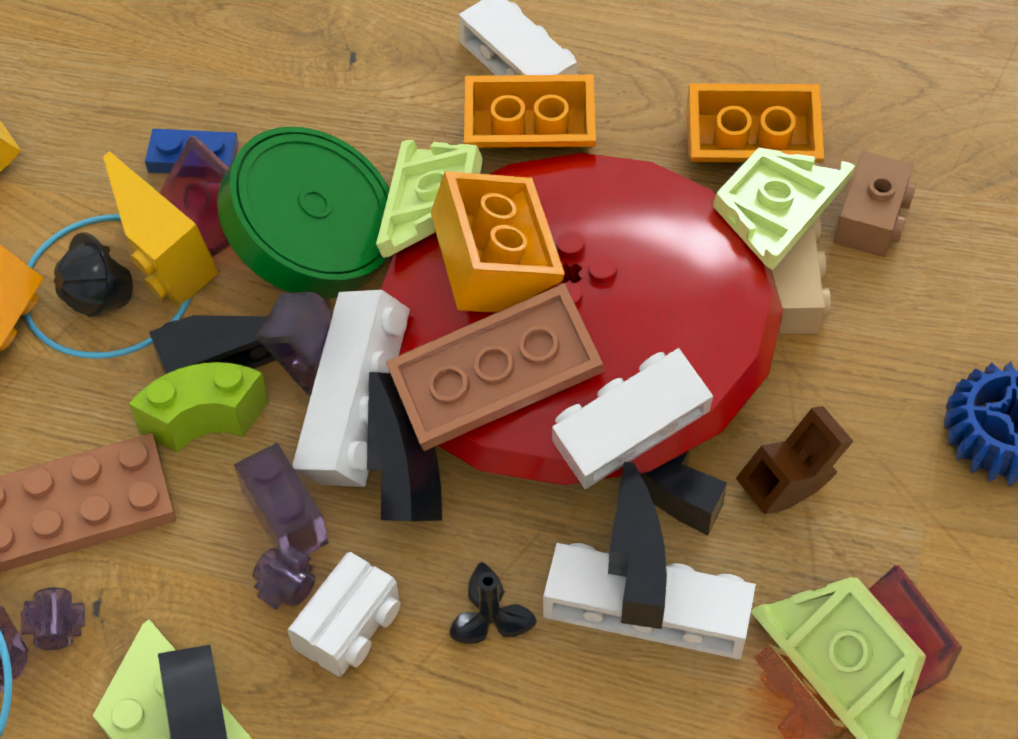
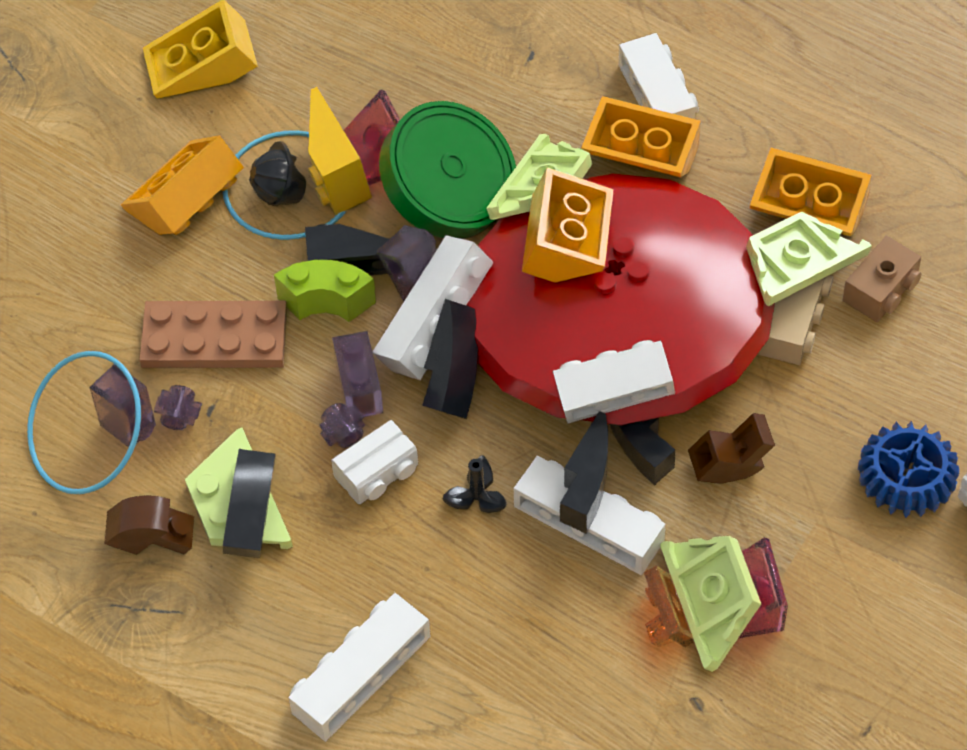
camera: 20 degrees right, 0 degrees up
(168, 144) = (366, 88): blue plate -> none
(494, 367) = (533, 319): nougat plate -> none

